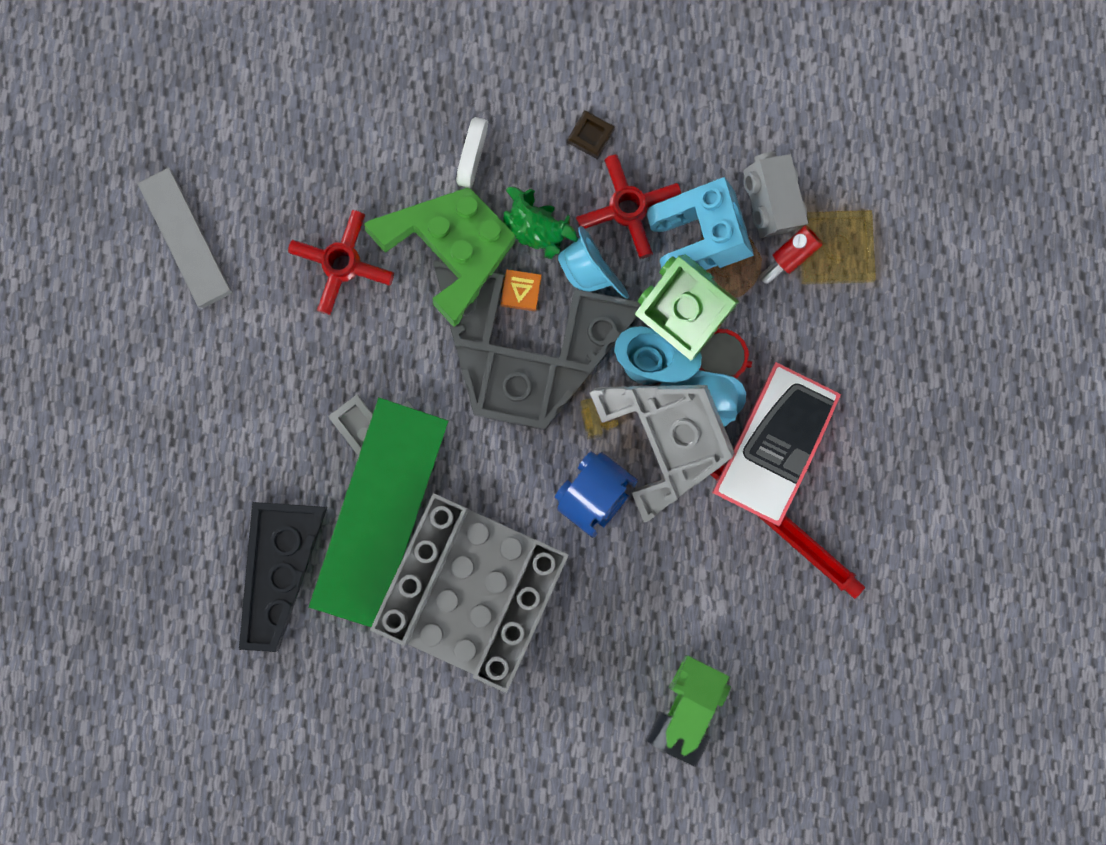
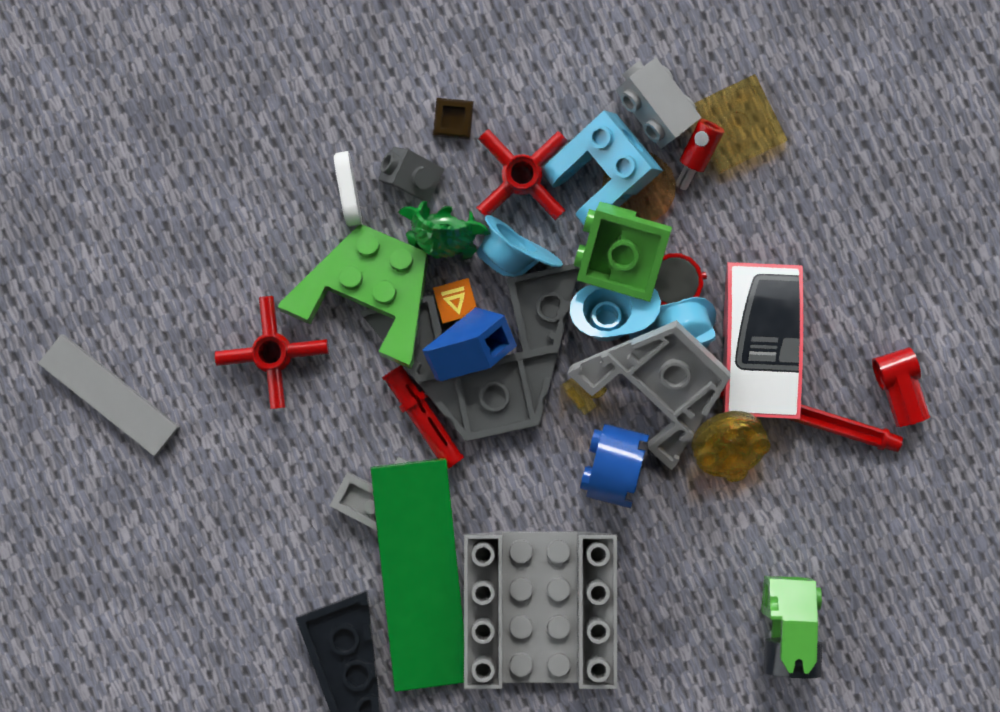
camera: 25 degrees left, 5 degrees up
(446, 377) = (422, 416): none -> red pin
(515, 330) = (470, 345): none -> blue slope
(532, 163) = (410, 173): none -> dark grey bracket
(706, 522) = (730, 445): none -> clear yellow tile
(884, 535) = (899, 378): none -> red piece

